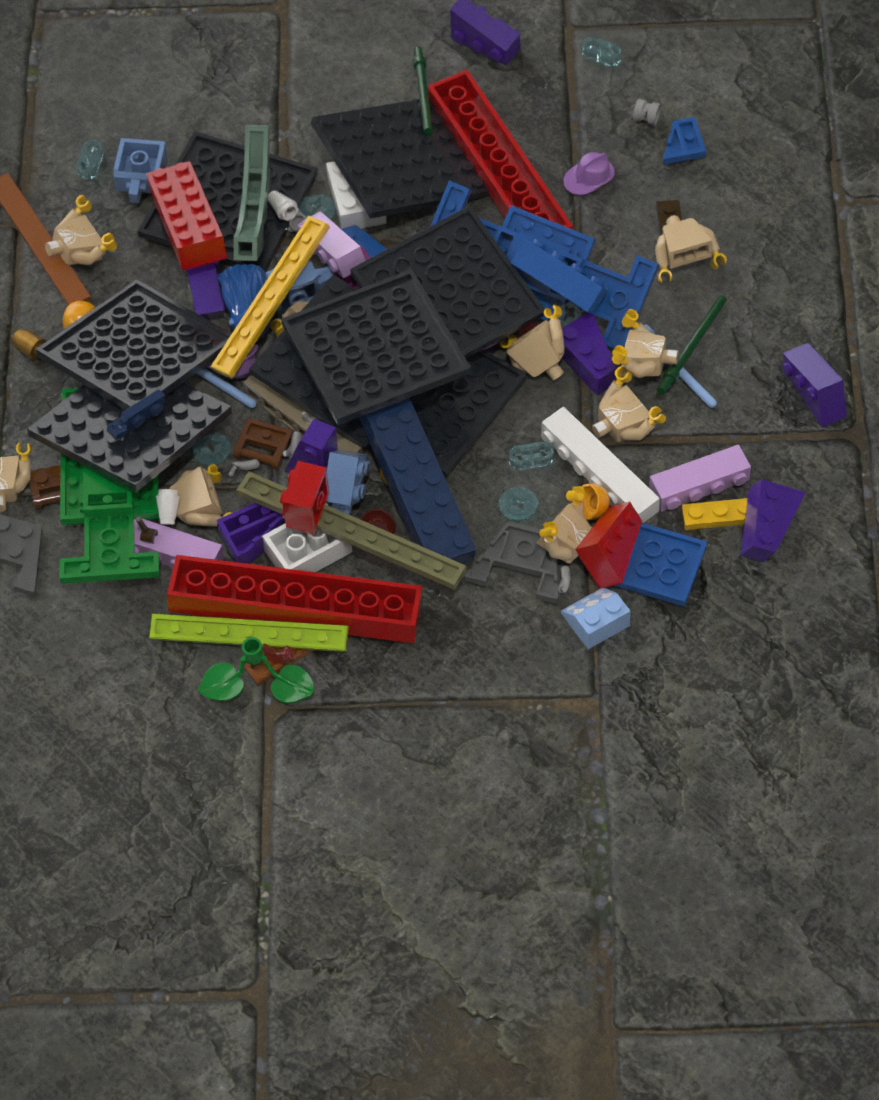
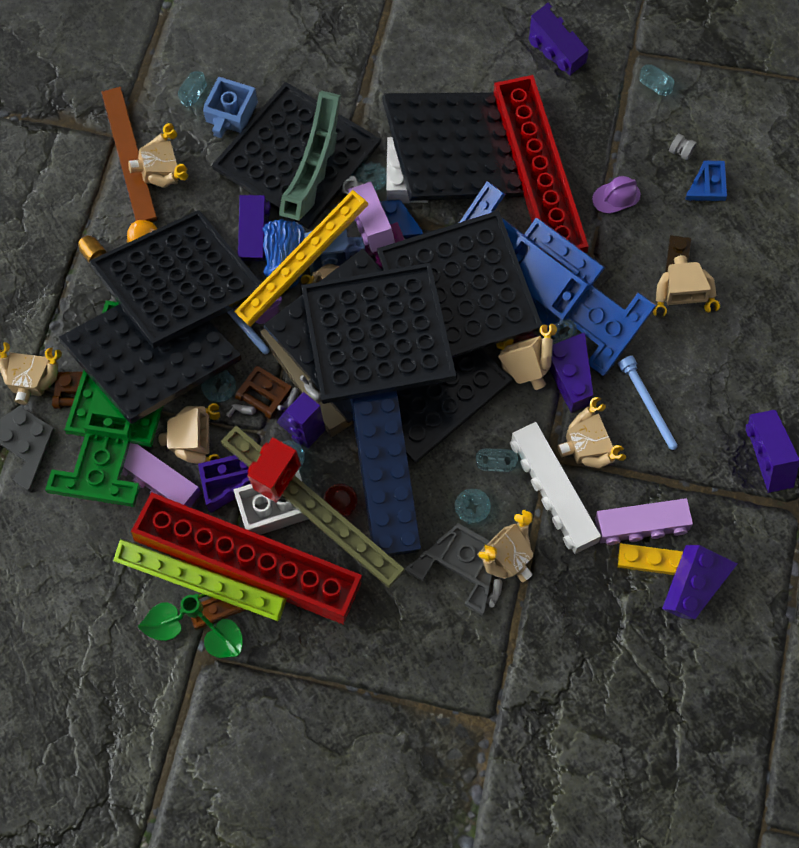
camera: 15 degrees right, 10 degrees up
(137, 414) = (150, 349): dark blue hinge -> none
(147, 534) = (134, 461): dark brown hand -> none
(167, 506) = (160, 438): white cone -> none
(186, 216) = (250, 164): red brick -> none
(277, 657) = (215, 608): clear red arm -> none
(282, 205) = (340, 170): white cone -> none
(346, 478) = (322, 450): medium blue hinge -> none
(420, 65) = (494, 60): dark green bar -> none
(559, 276) = (562, 296): blue brick -> none
(595, 501) = (542, 523): light orange hair -> none
(597, 616) = (514, 638): light blue slope -> none
(610, 544) = (544, 571): red wedge -> none
(643, 351) = (622, 383): tan torso -> none
(663, 564) = (586, 599): blue plate -> none
(672, 373) = (643, 411): dark green bar -> none

